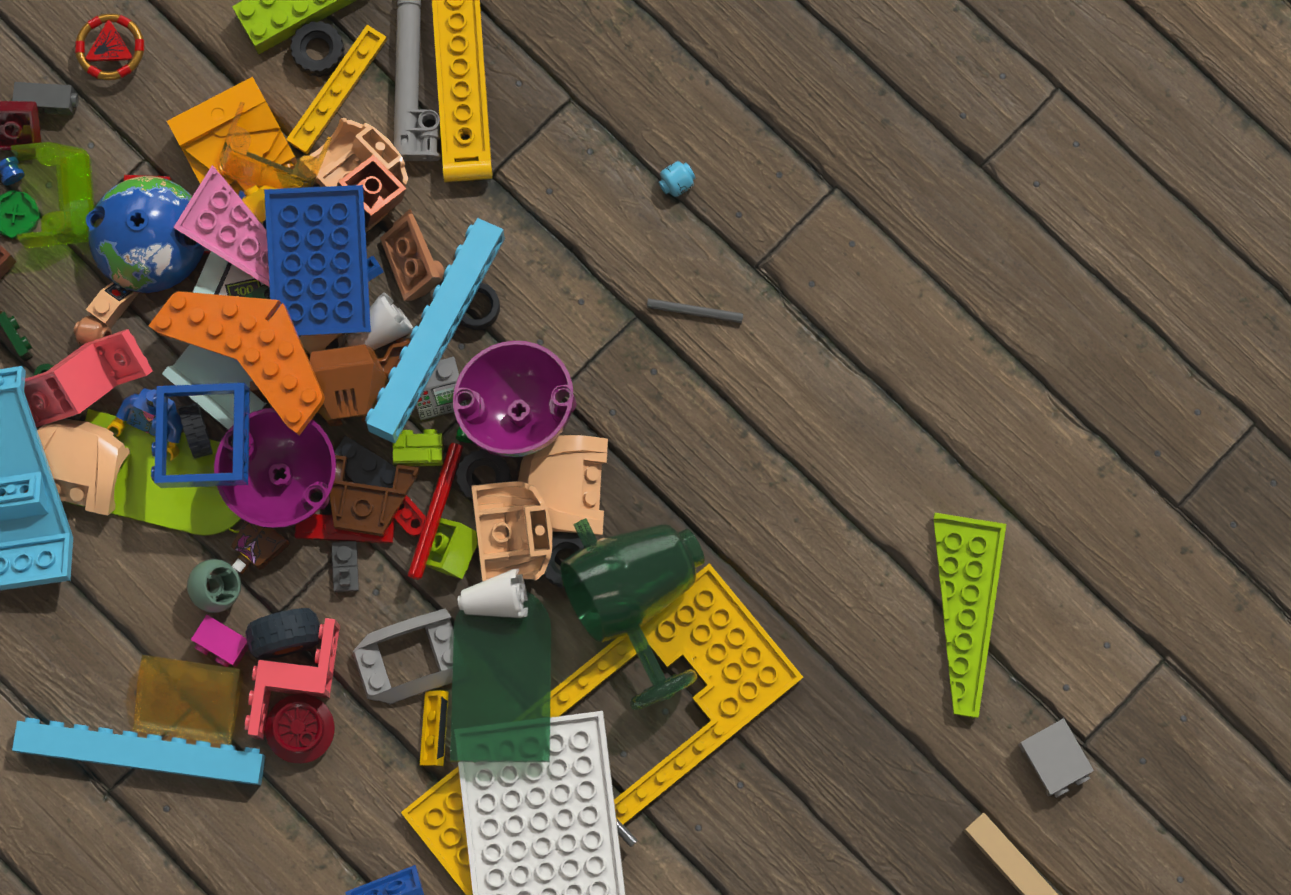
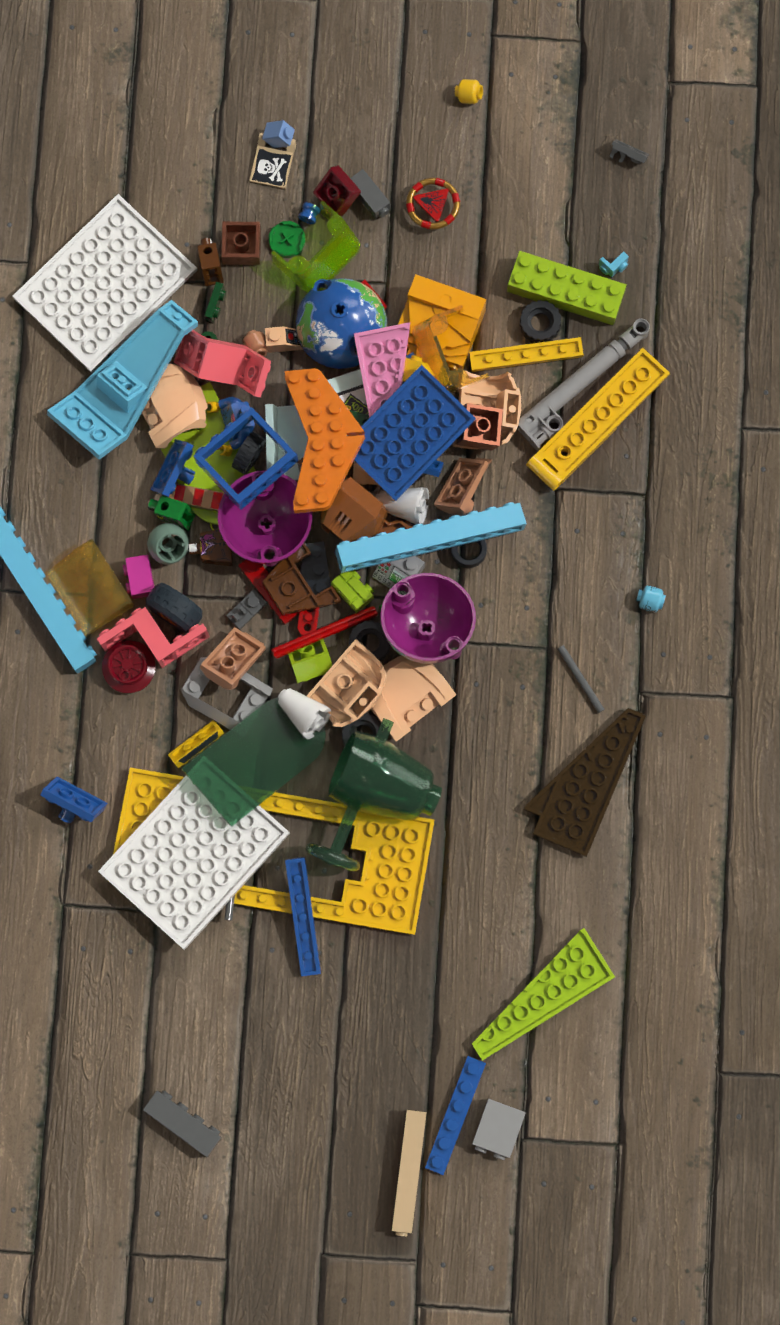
camera: 50 degrees right, 0 degrees up
(144, 516) = (174, 469): none -> blue plate
(185, 554) = (172, 512): none -> green torso
(193, 518) = (197, 497): none -> tile
(384, 620) = (232, 659): none -> nougat slope
(694, 768) = (303, 916): none -> blue plate
(804, 406) = (579, 795): none -> dark brown wing
(1008, 788) = (455, 1115): none -> blue plate

